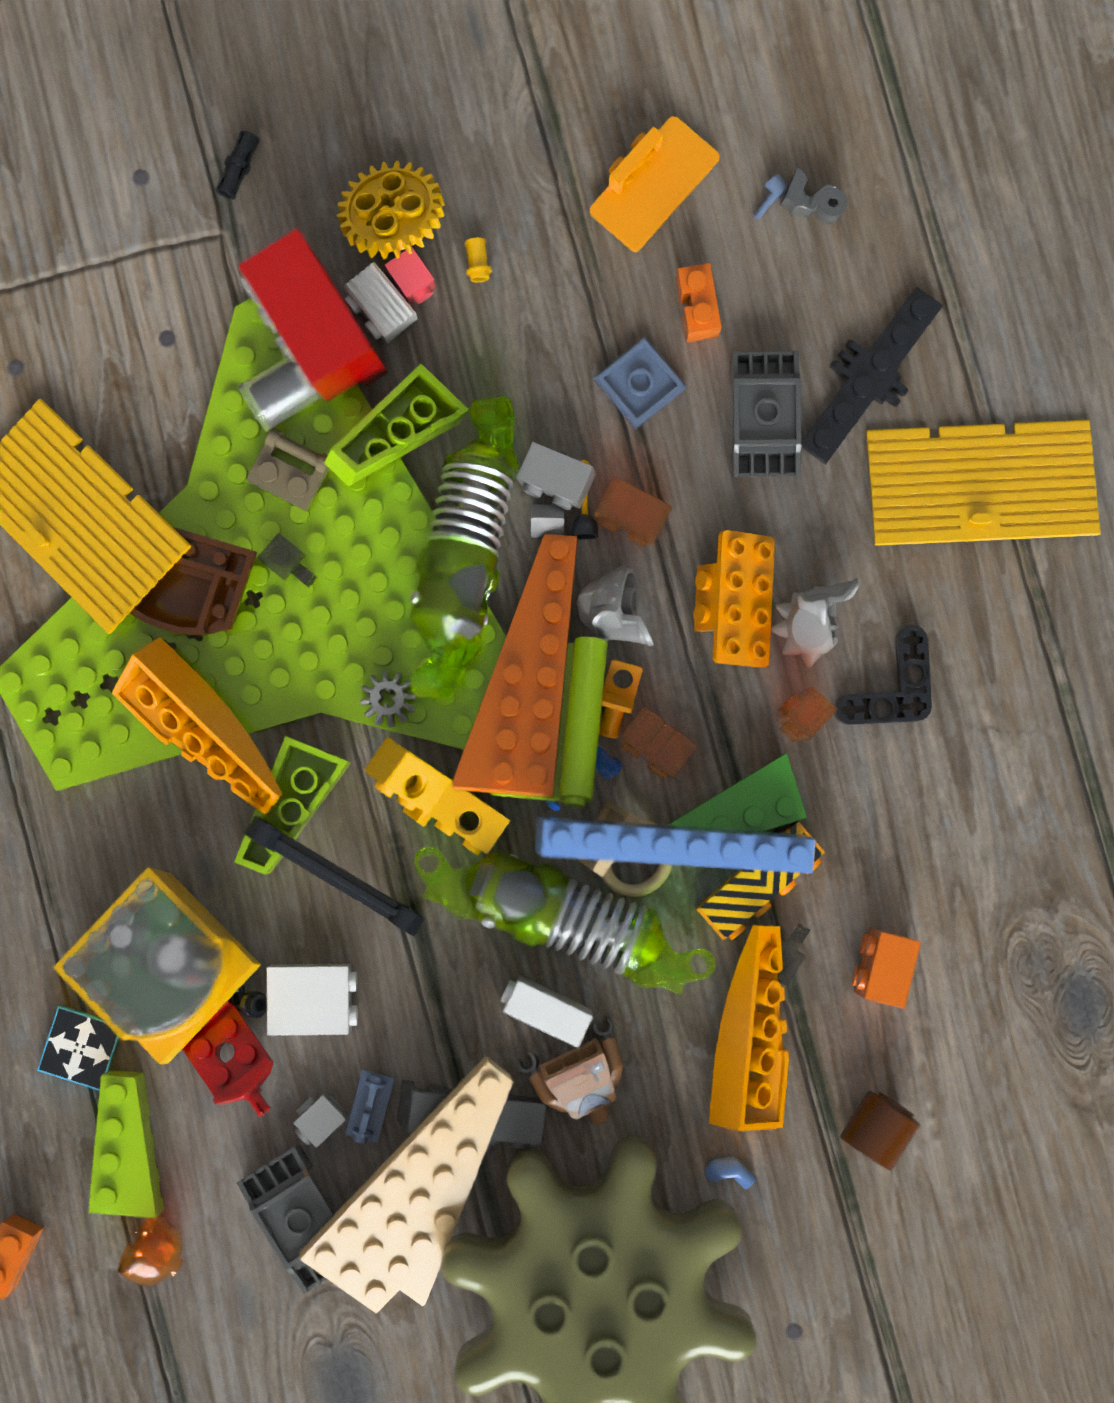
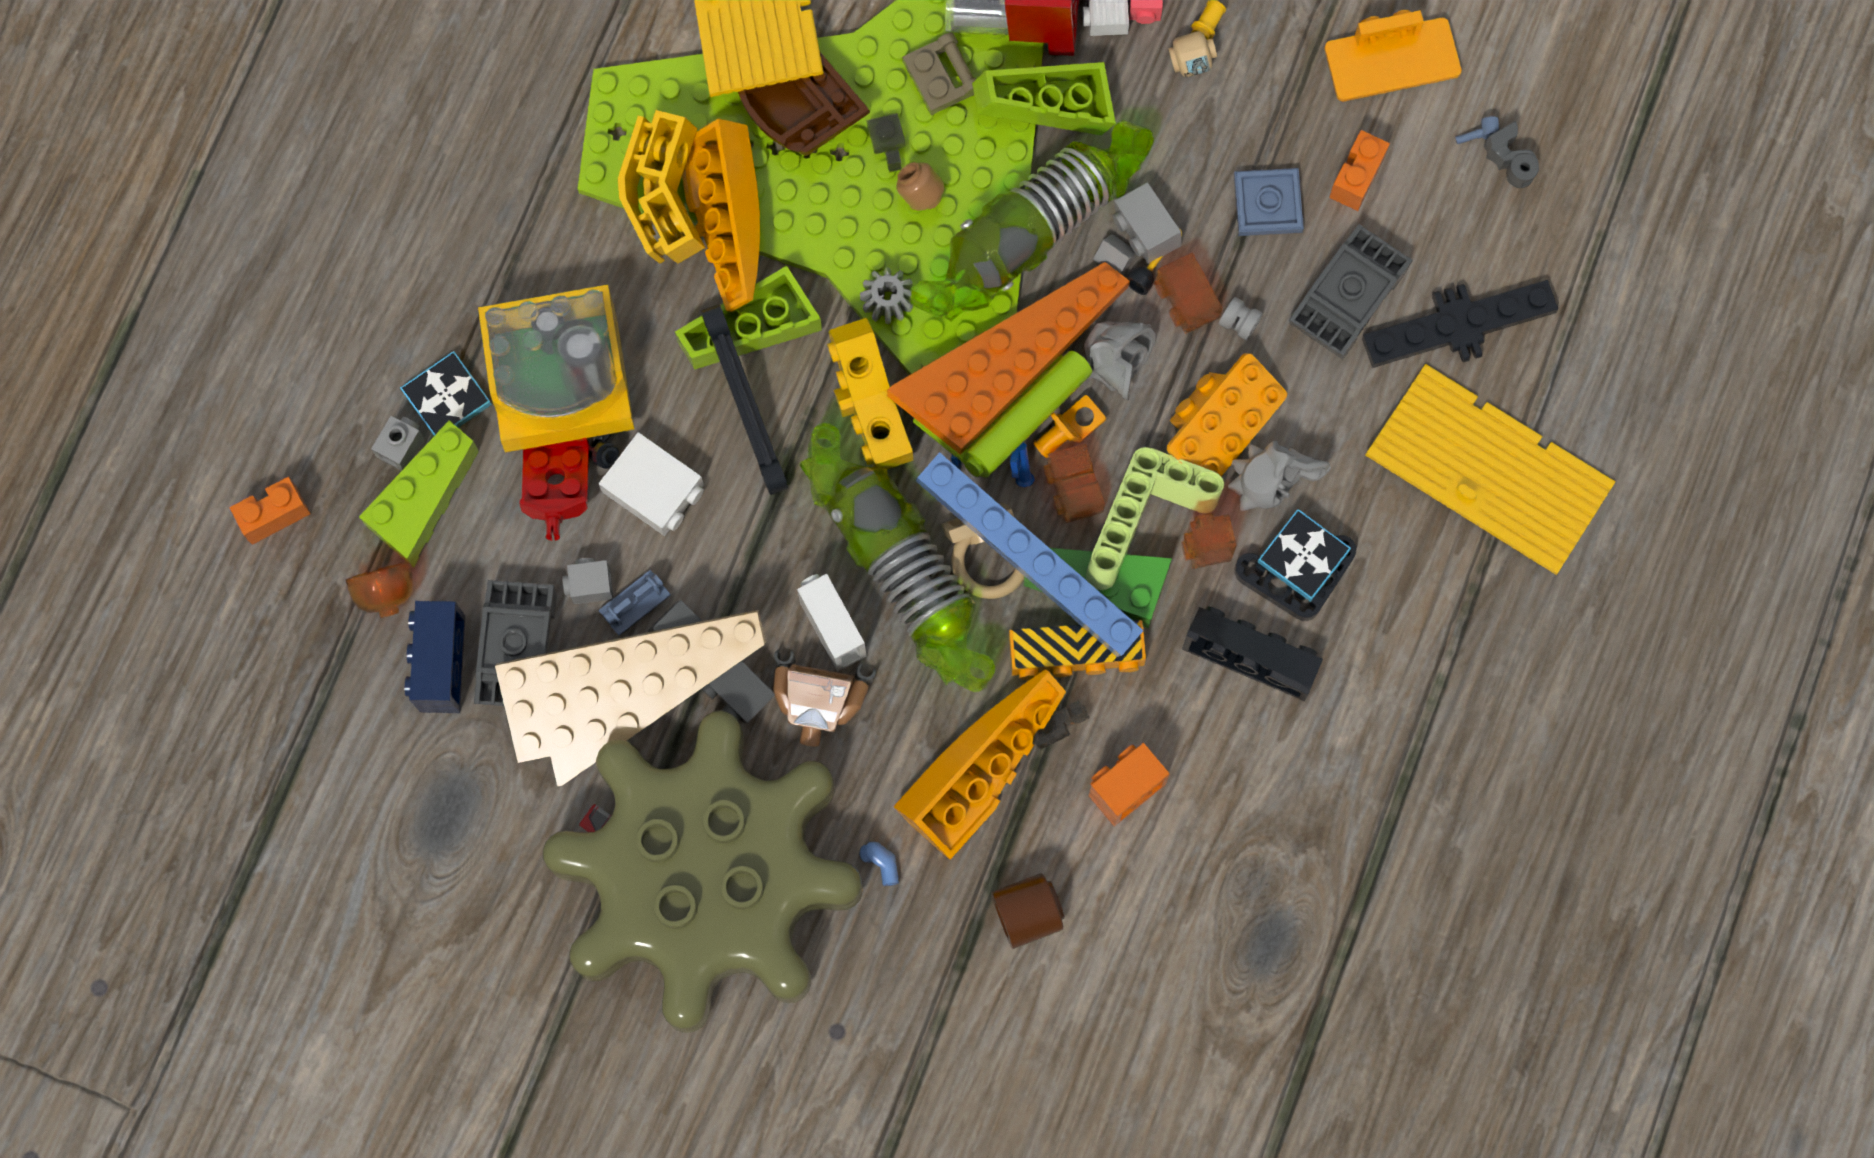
camera: 40 degrees right, 10 degrees down
(71, 1119) = (398, 442): none -> light grey brick
(149, 773) = (659, 155): none -> yellow brick
(243, 1281) = (435, 656): none -> dark blue brick
(346, 584) = (920, 186): none -> medium nougat head
(474, 1307) = (594, 819): none -> sticker
(486, 299) = (1192, 54): none -> tan head
(691, 502) = (1240, 318): none -> light grey wheel
(725, 732) = (1148, 474): none -> yellowish green beam
(888, 668) = (1304, 555): none -> black tile
(903, 780) = (1252, 653): none -> black wedge

